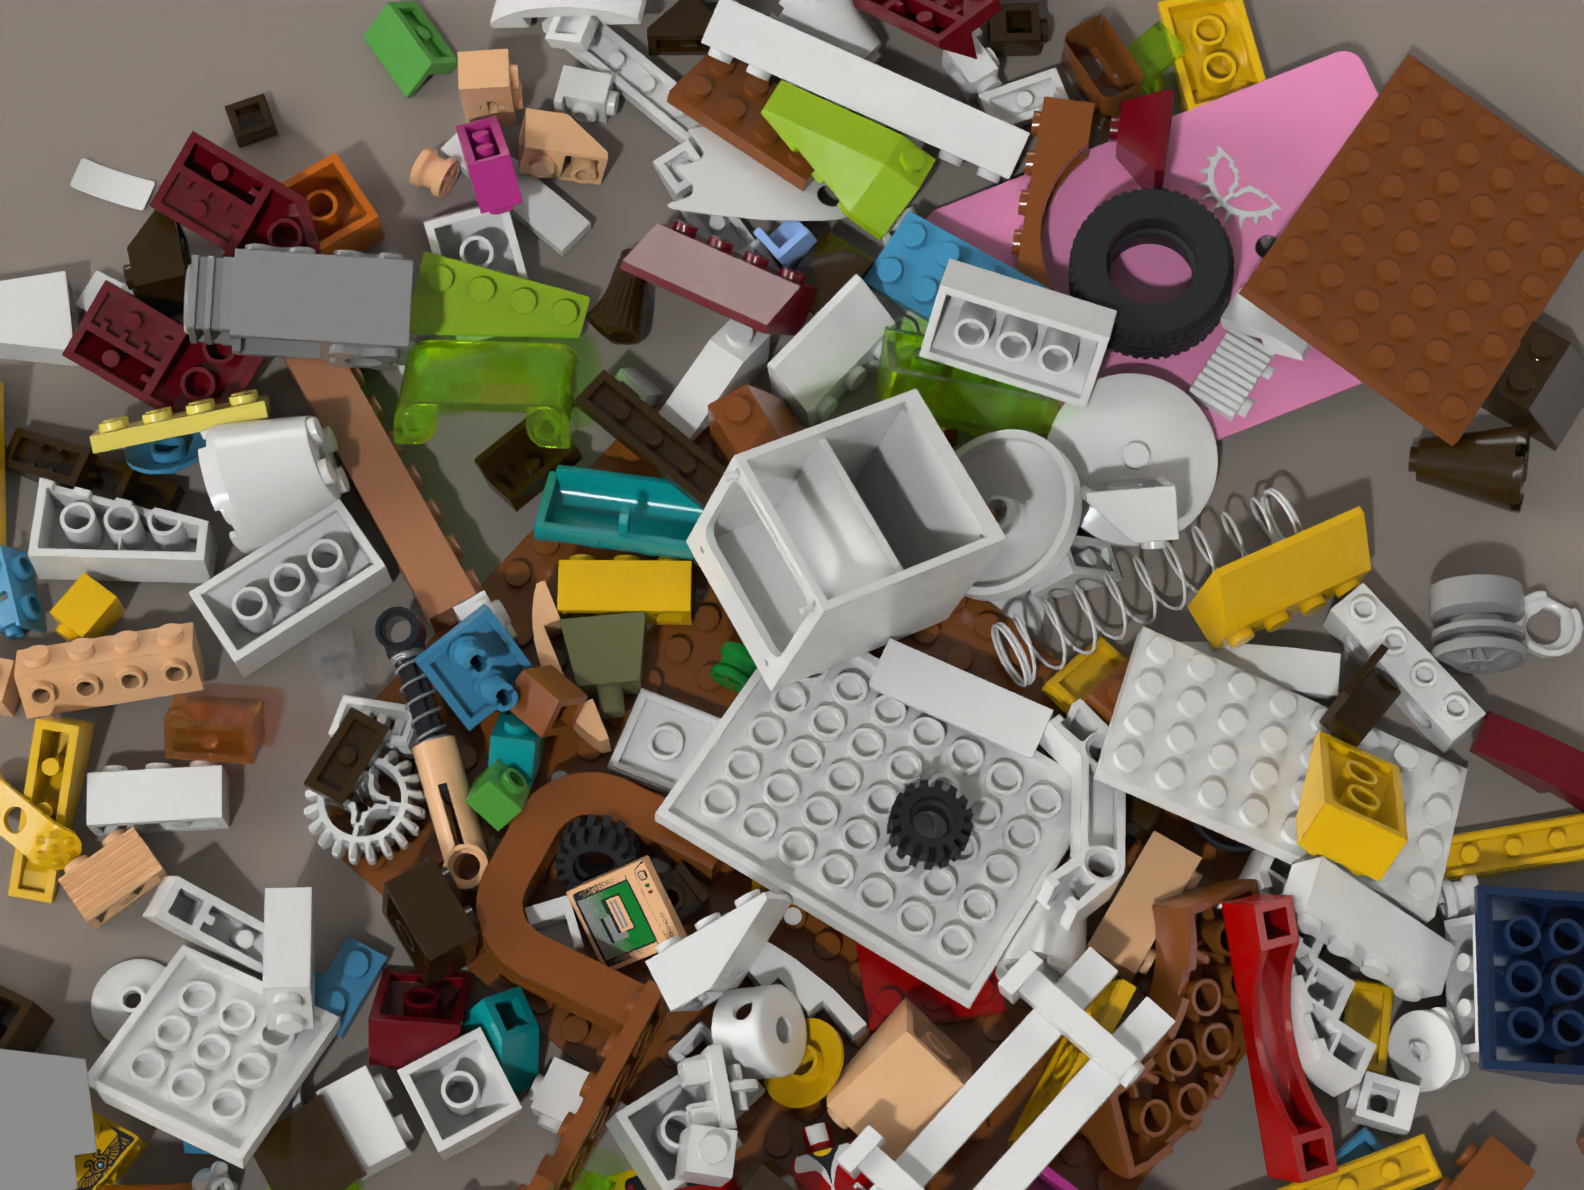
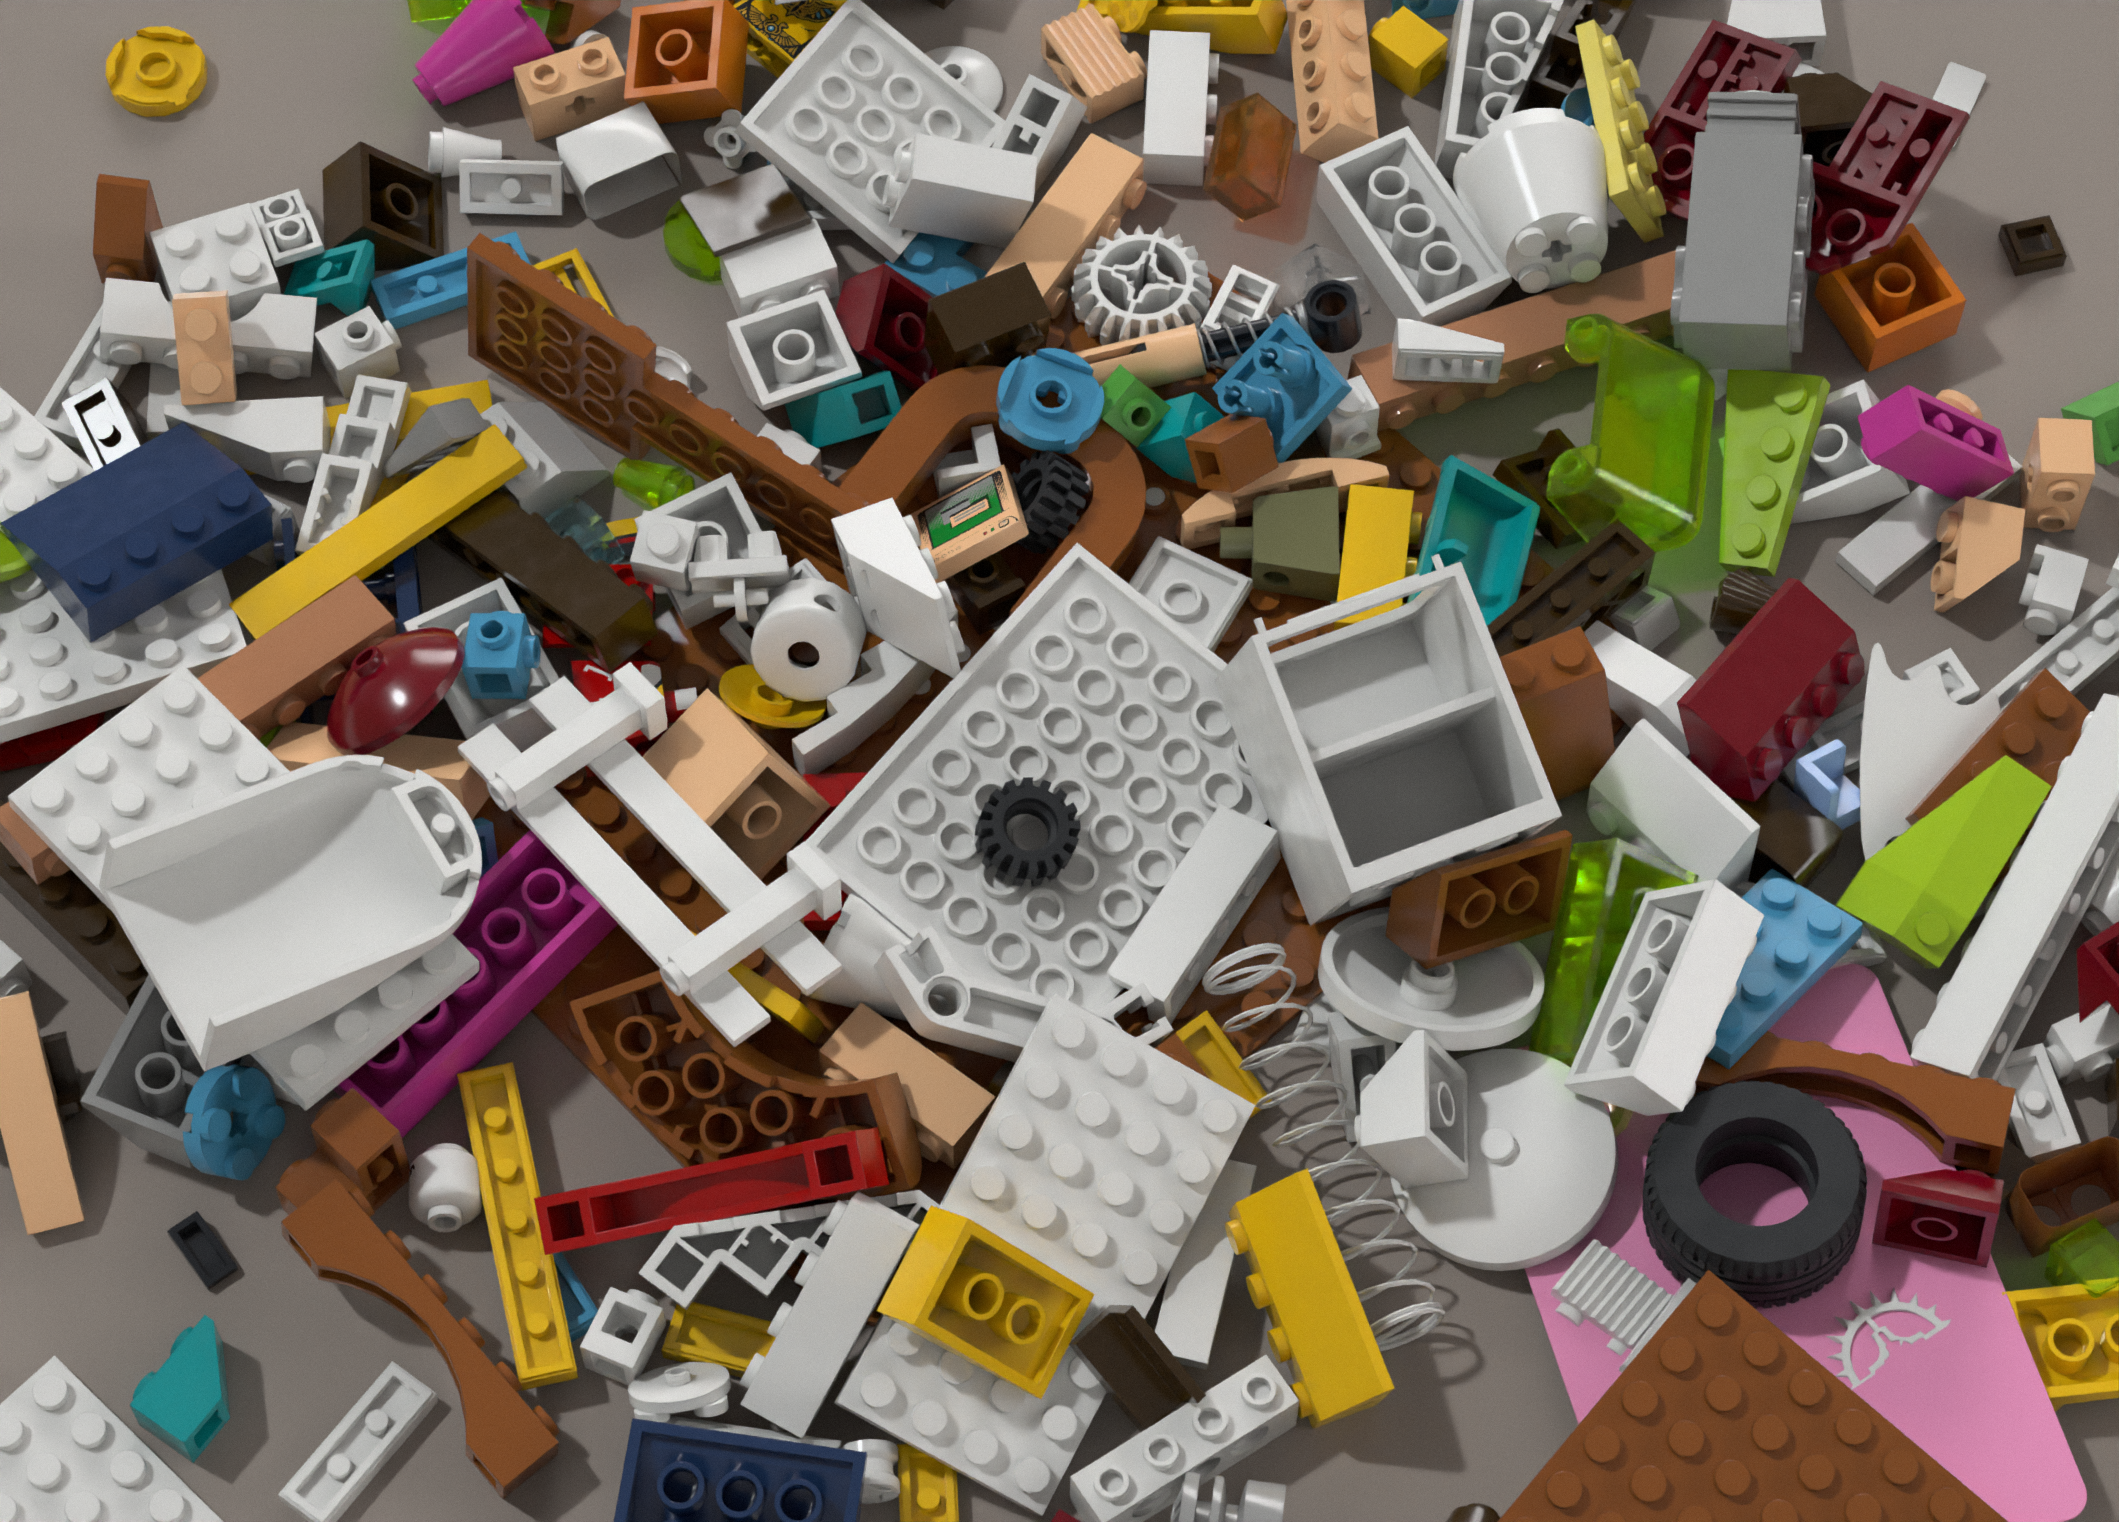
camera: 95 degrees right, 10 degrees down
(258, 861) = (1073, 215): none -> light nougat brick
(347, 757) = (1187, 256): dark brown plate -> none
(432, 551) = (1443, 354): none -> white slope
(525, 875) = (1046, 428): none -> dark azure plate

